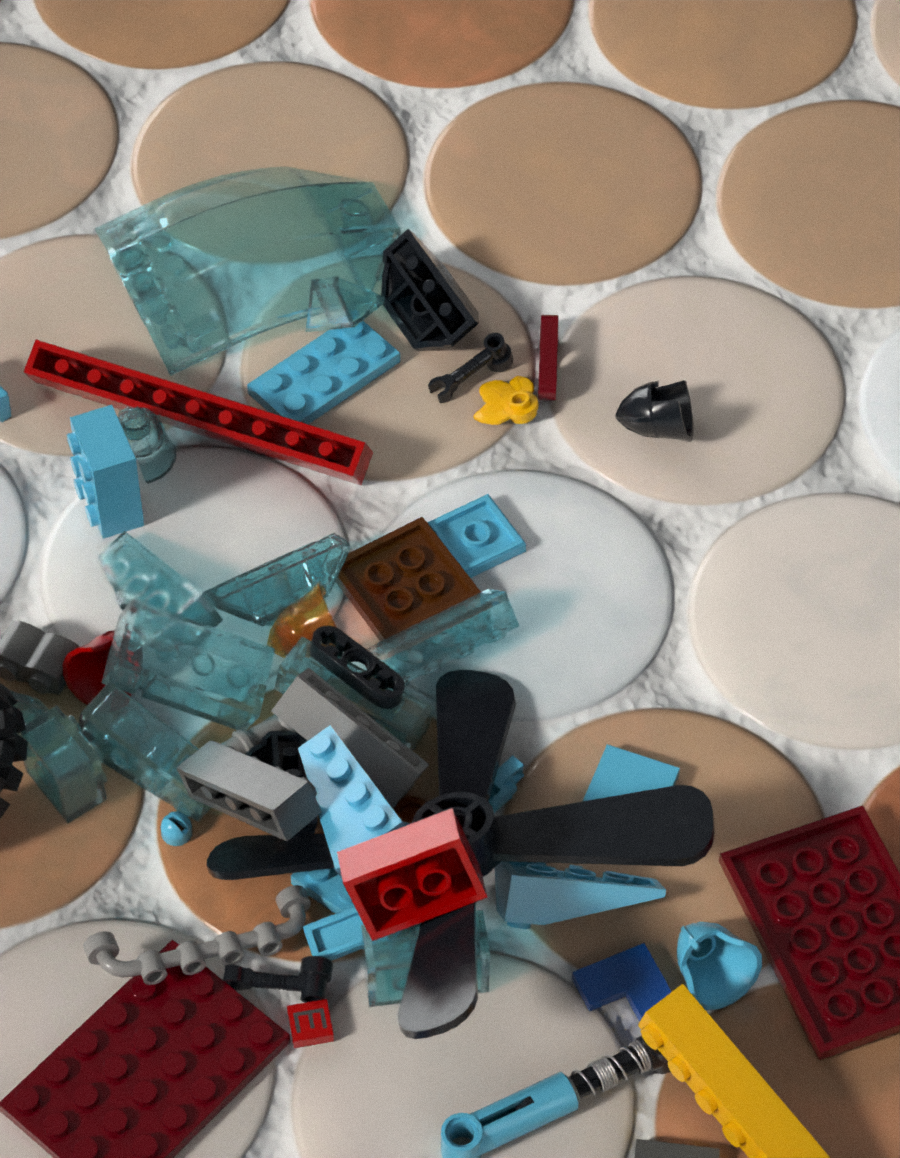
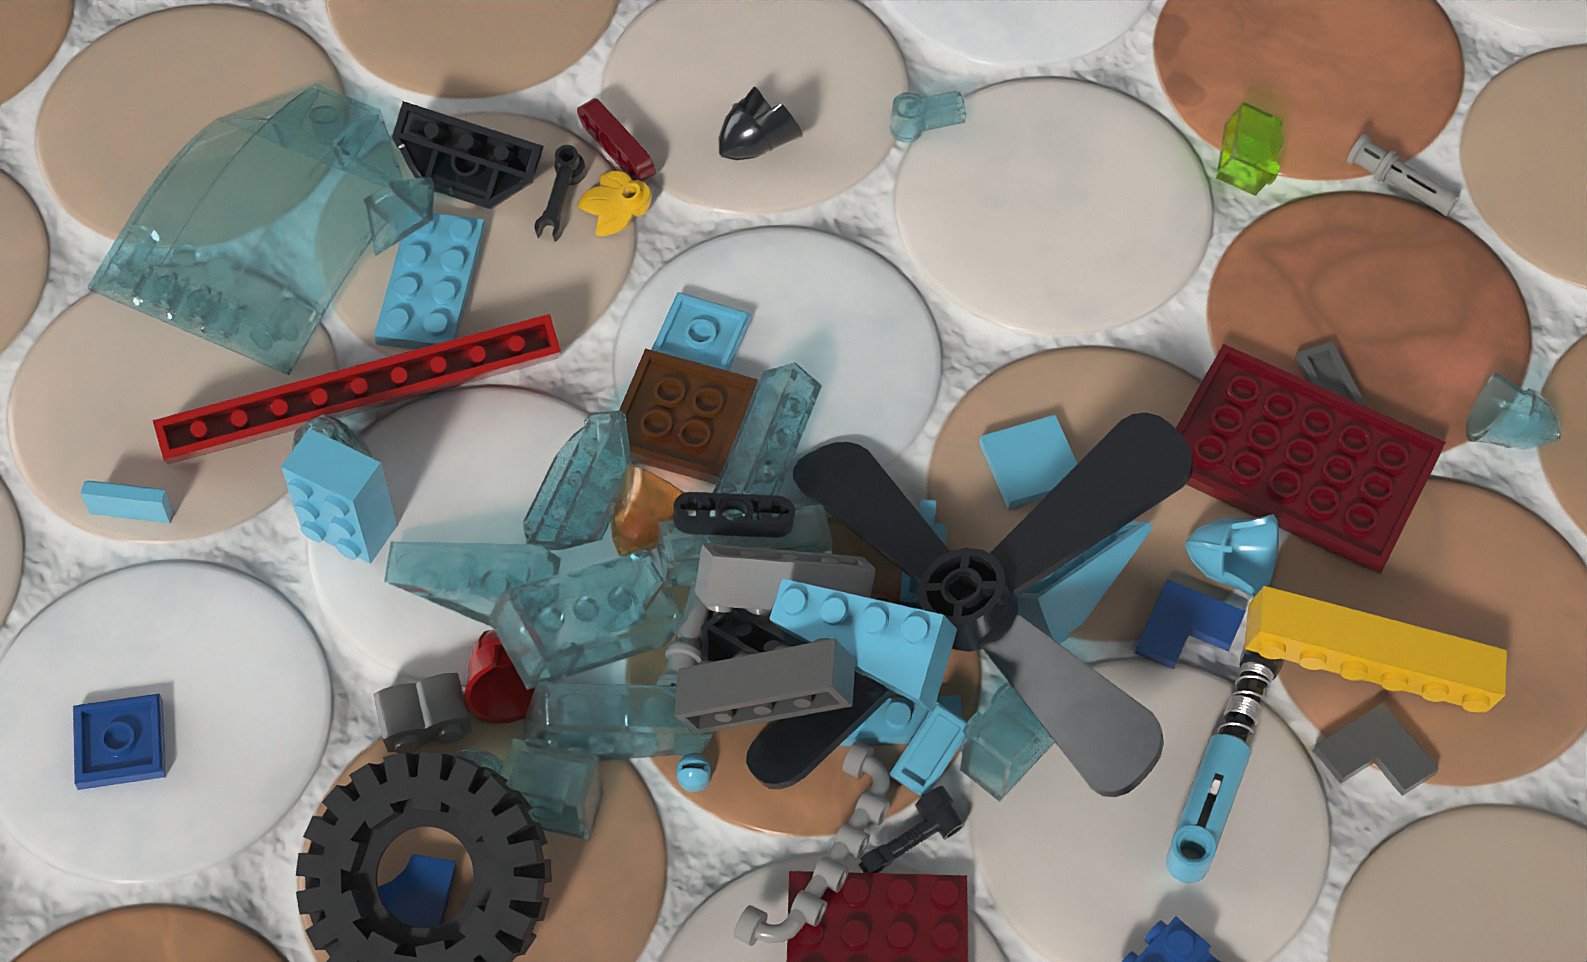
camera: 40 degrees left, 5 degrees up
(310, 1023) = (971, 853): red tile -> none
(411, 874) = (991, 654): red brick -> none
(791, 481) = (916, 114): none -> clear light blue piece

